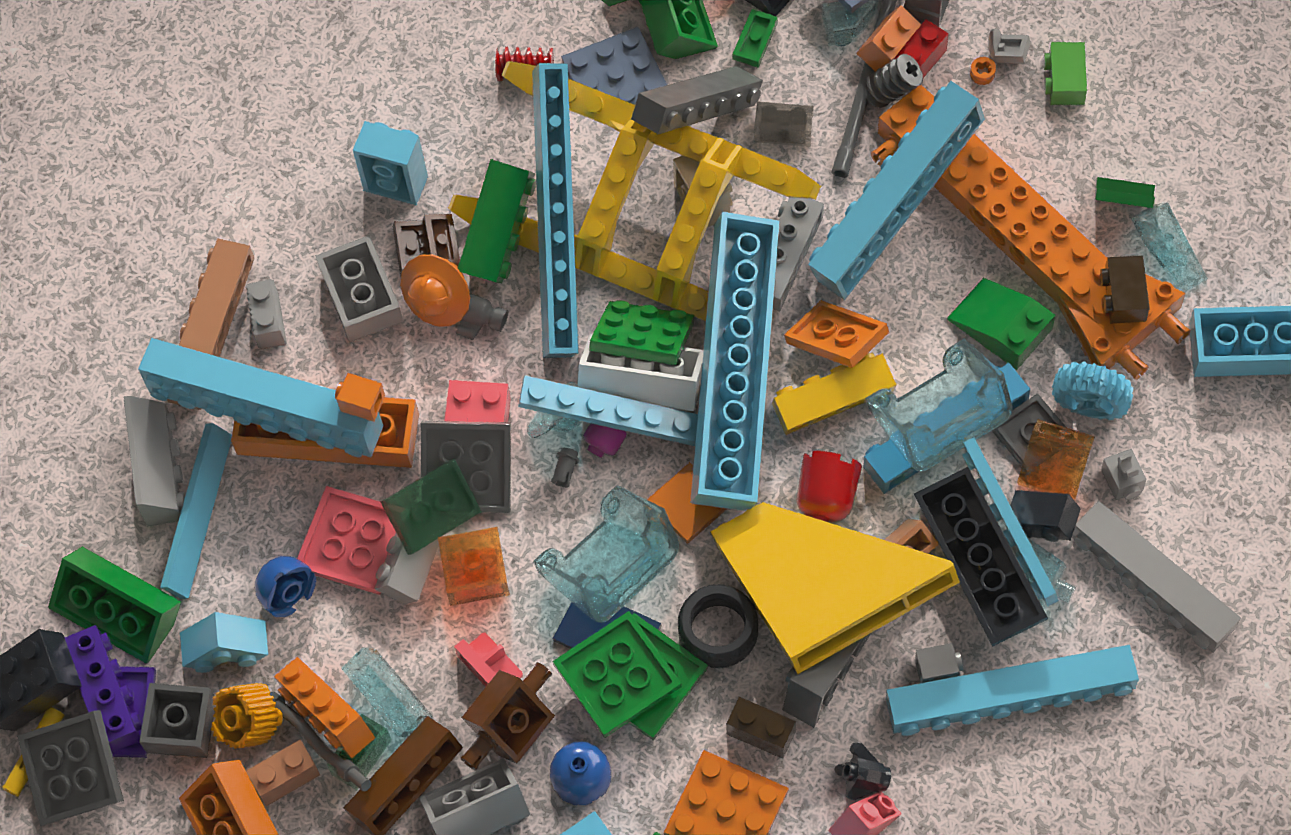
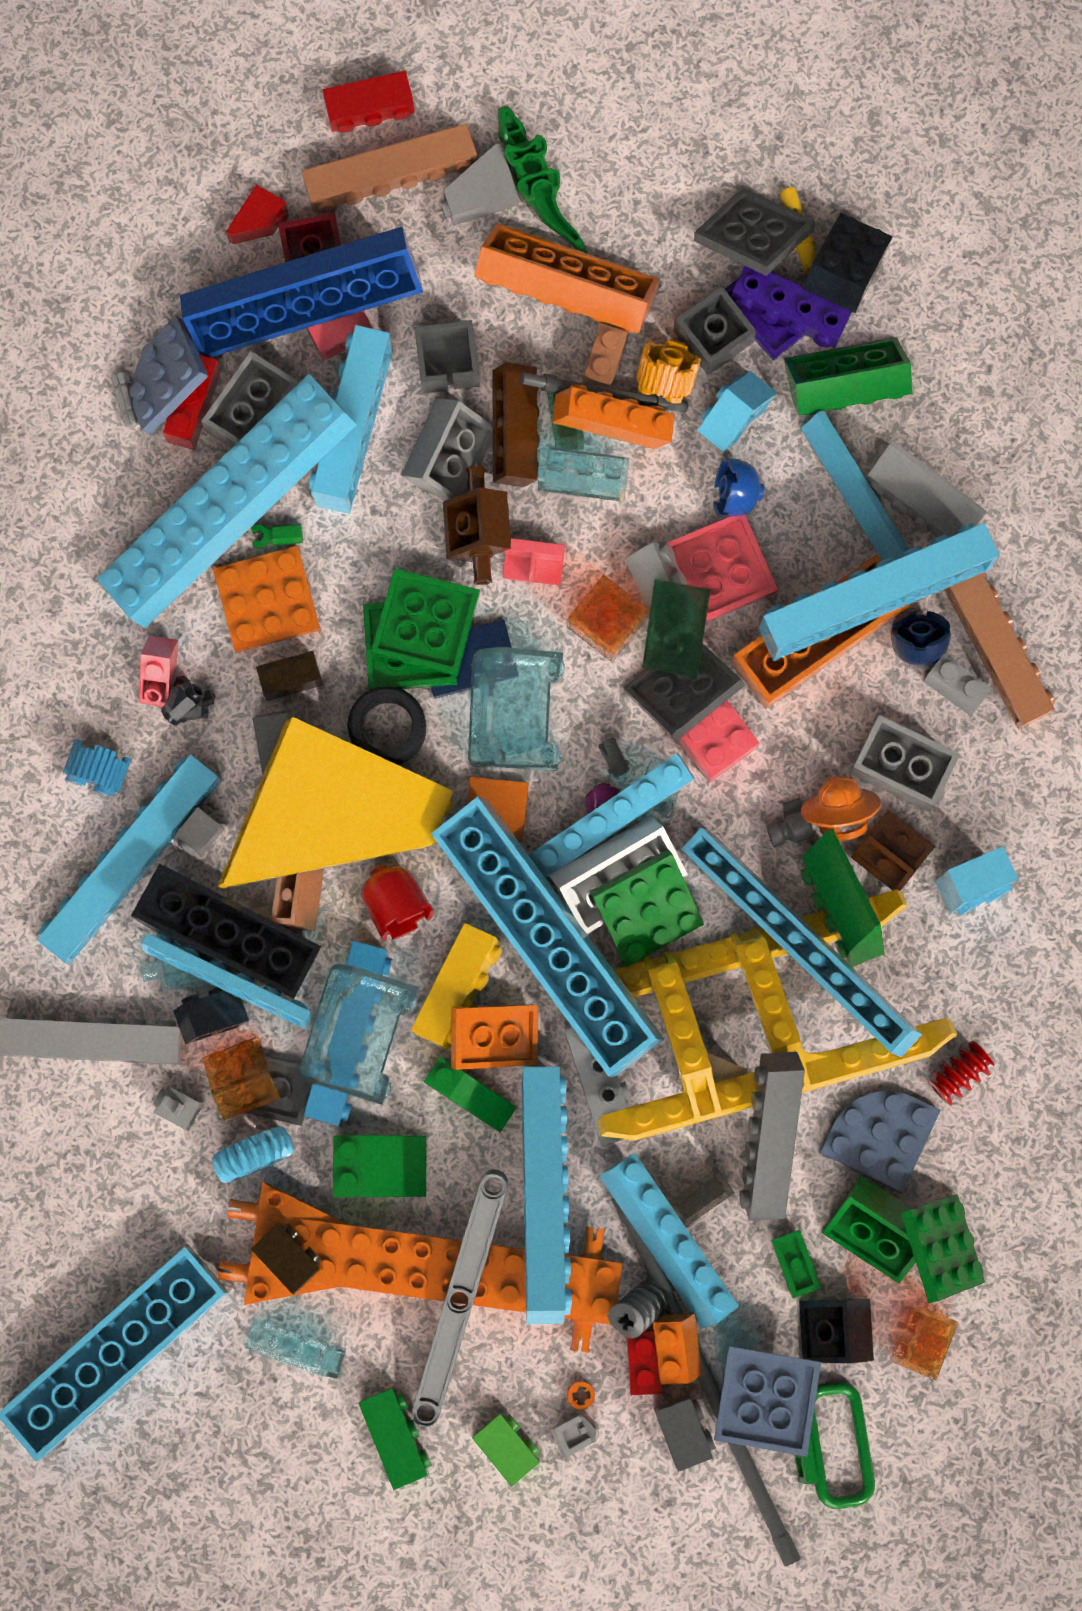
camera: 135 degrees right, 15 degrees up
(261, 352) = (920, 638): none -> dark blue cylinder
(360, 396) = (789, 634): orange brick -> none
(580, 773) = (399, 549): blue cylinder -> none
(832, 110) = (669, 1241): none -> medium azure brick
(888, 308) = (470, 1094): none -> green slope
(981, 775) = (96, 767): none -> dark azure brick
(1002, 181) = (464, 1279): none -> beam
(1124, 192) = (367, 1366): green slope -> none
(1142, 137) = (395, 1437): none -> green brick

